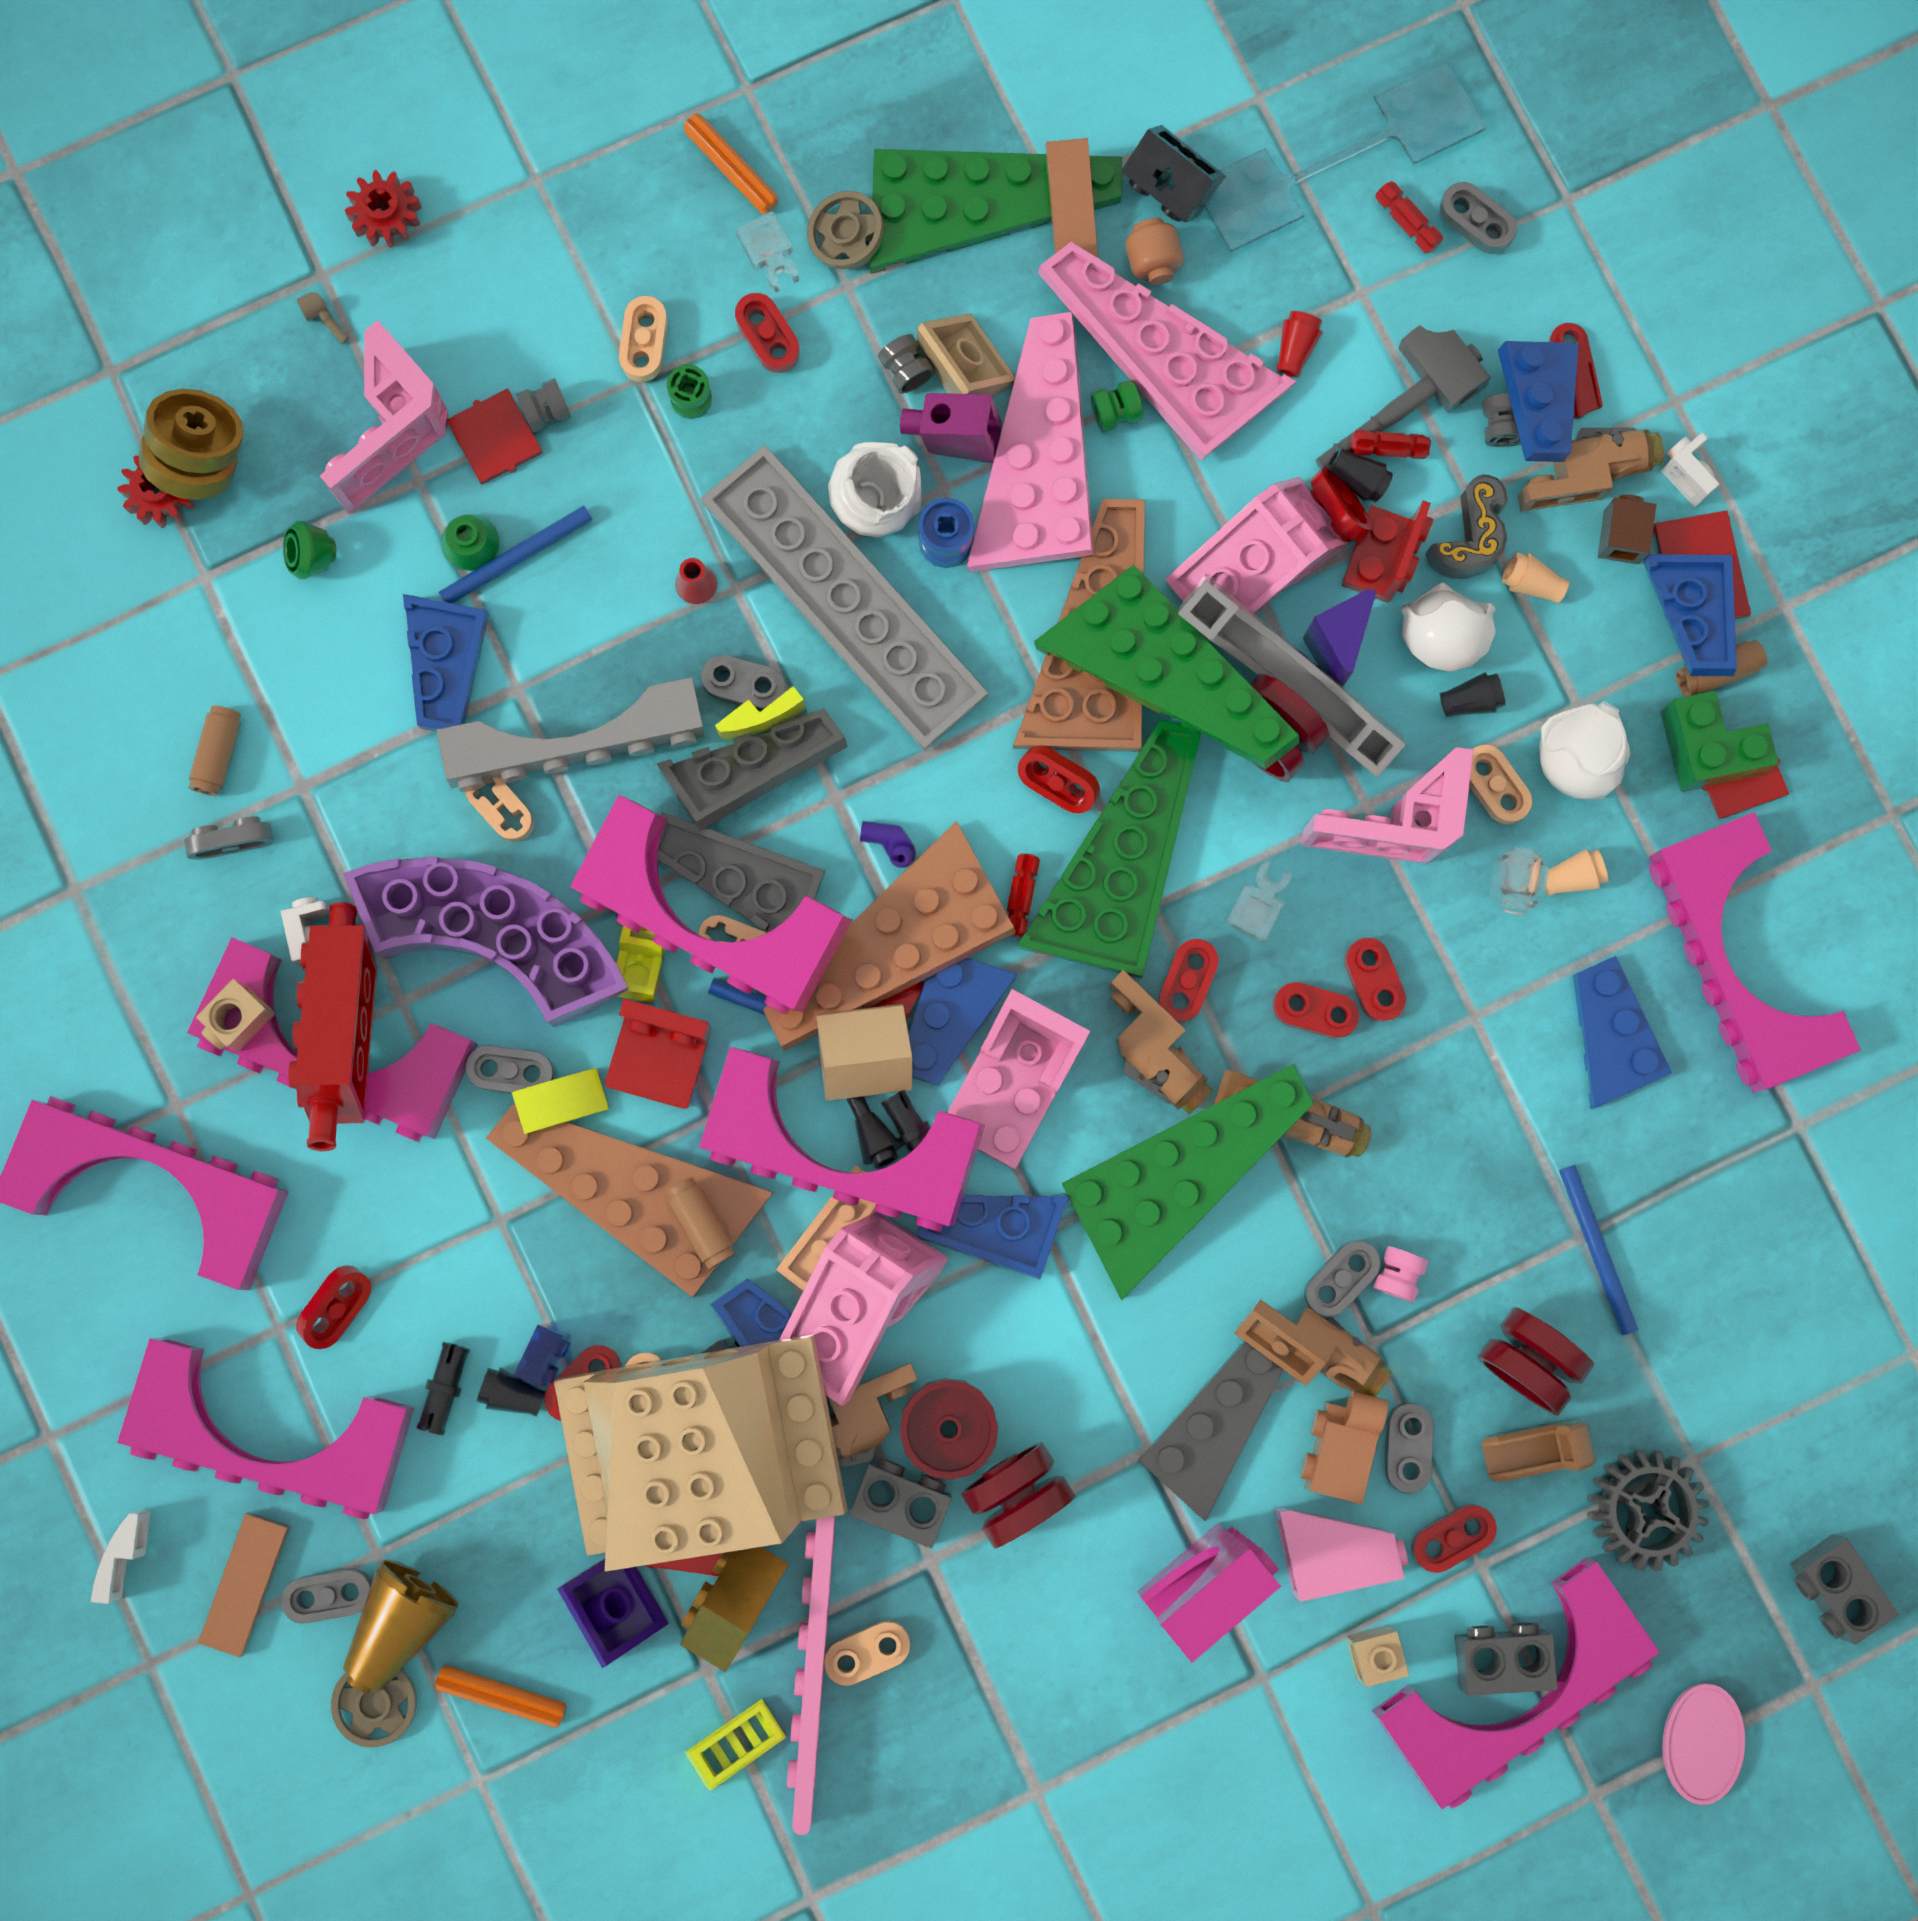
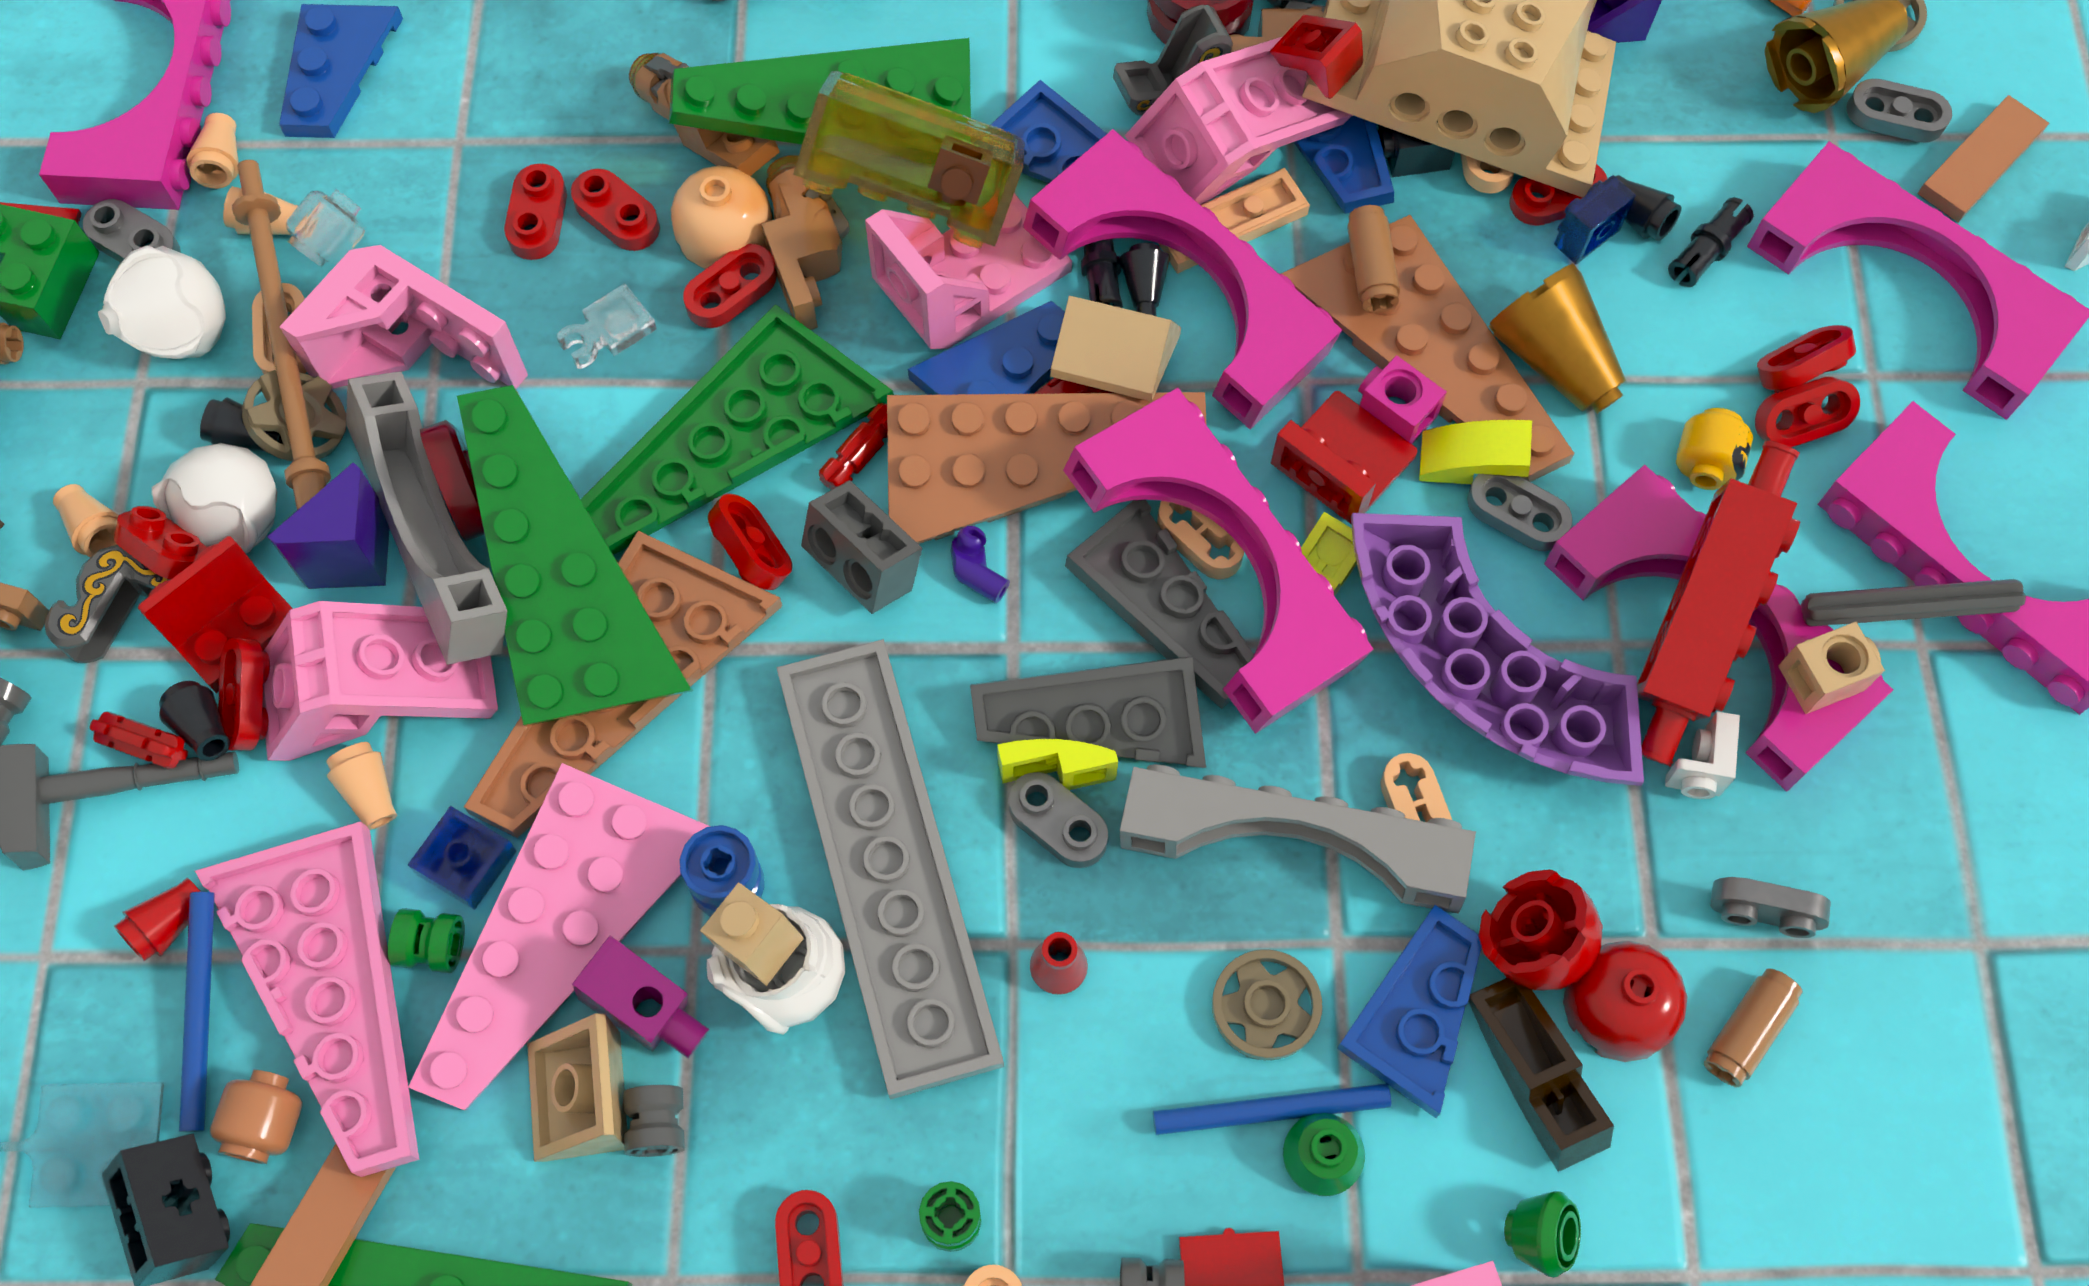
camera: 150 degrees left, 15 degrees down
(190, 1103) = (1913, 602): none -> dark grey axle
(307, 731) = (1627, 1002): none -> red cylinder
(318, 1256) = (1802, 411): none -> red plate
(349, 656) = (1542, 1073): none -> dark brown slope
(378, 738) = (1542, 931): none -> red cylinder
(380, 1190) = (1714, 448): none -> yellow head
(529, 1226) = (1563, 340): none -> pearl gold cone
(547, 621) = (1266, 1005): none -> dark tan wheel
(615, 1111) = (1405, 382): none -> dark pink brick
(812, 1356) = (1324, 49): none -> red slope
(890, 474) = (752, 933): none -> tan brick
(937, 1333) = (1195, 38): none -> dark grey animal
(974, 805) = (861, 546): none -> dark grey brick
(1046, 1119) = (960, 172): none -> reddish brown brick
(1091, 1133) = (891, 147): none -> clear yellow windscreen
(1126, 469) = (462, 857): none -> clear blue piece
(1225, 488) = (362, 782): none -> light nougat cone
(1227, 1036) = (718, 213): none -> light nougat cylinder
(1236, 299) = (197, 1012): none -> blue bar
(1397, 673) = (306, 472): none -> medium nougat bar
(1439, 719) = (271, 416): none -> dark tan wheel
(1462, 570) = (156, 541): none -> red plate
(1648, 909) = (214, 153): none -> light nougat cone
(1665, 812) = (126, 231): none -> flat silver plate

